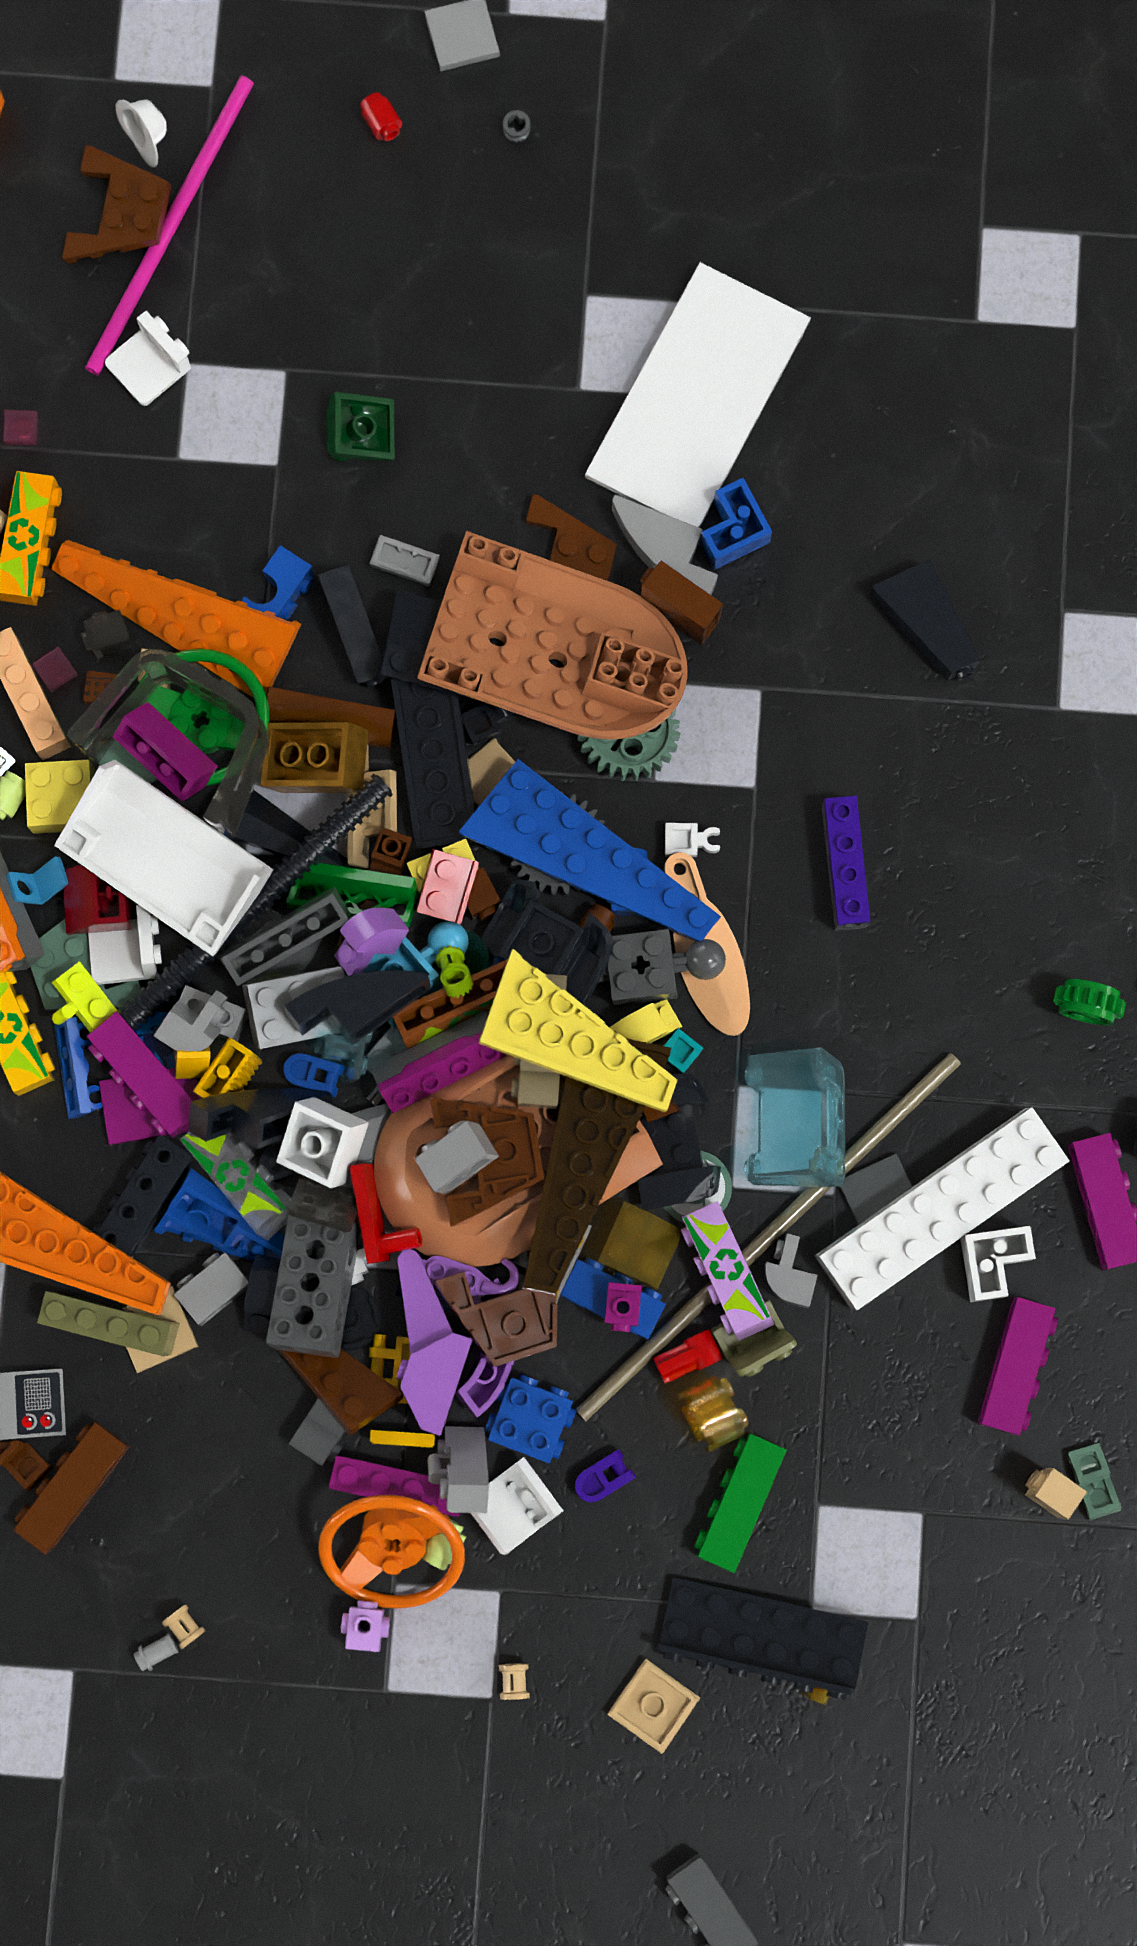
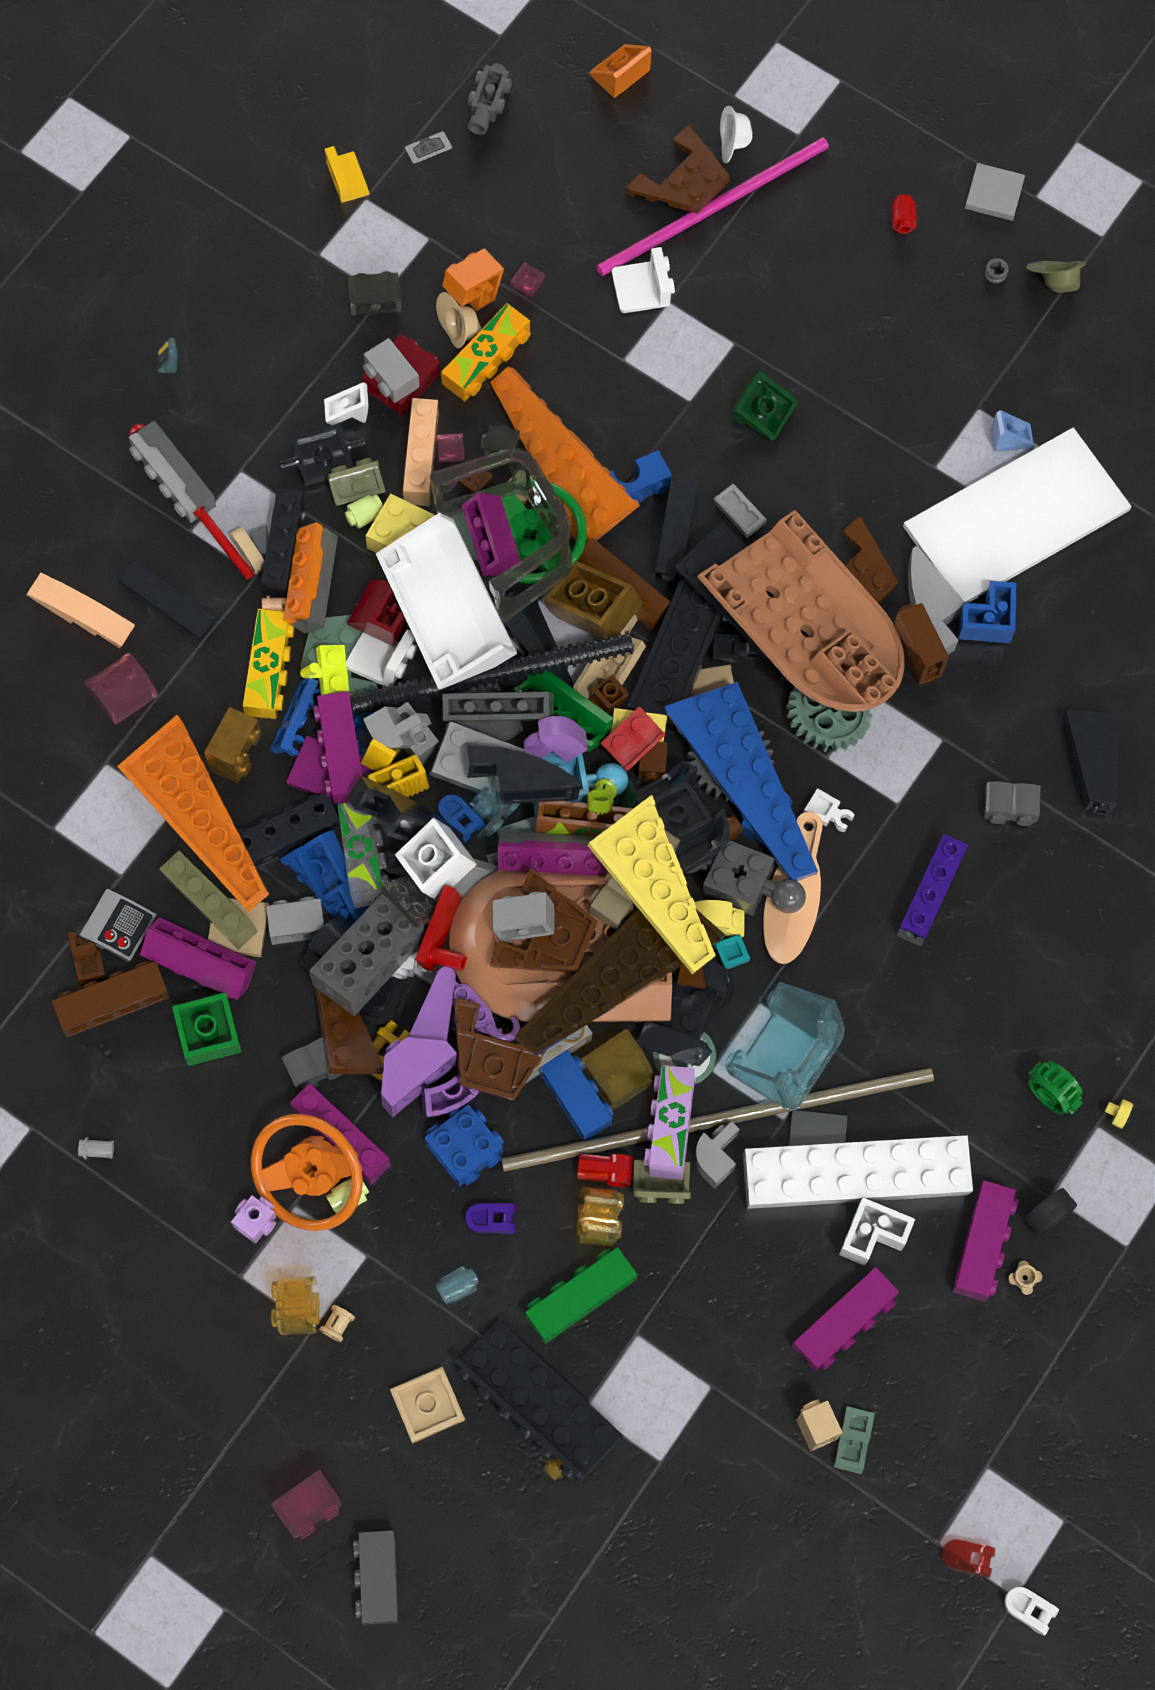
camera: 30 degrees right, 10 degrees down
(29, 1143) = (230, 745): none -> pearl gold brick
(41, 884) = (350, 583): dark azure bracket -> none
(144, 1393) = (198, 958): none -> magenta brick
(174, 1624) = (125, 1151): tan bush -> none
(193, 1461) = (206, 1029): none -> green brick
(402, 1438) = (364, 1103): yellow tile -> none
(461, 1469) = (392, 1144): light grey piece -> none
(463, 1691) = (295, 1305): none -> clear yellow brick
(516, 1507) = (413, 1197): white bracket -> none
(585, 93) = (1059, 275): none -> olive piece
(599, 1886) = (307, 1505): none -> clear pink brick
(611, 1568) = (457, 1285): none -> clear light blue brick
(627, 1293) = (579, 1110): magenta brick -> none
(638, 306) = (1010, 433): none -> medium blue slope
(872, 719) = (1012, 802): none -> dark grey brick

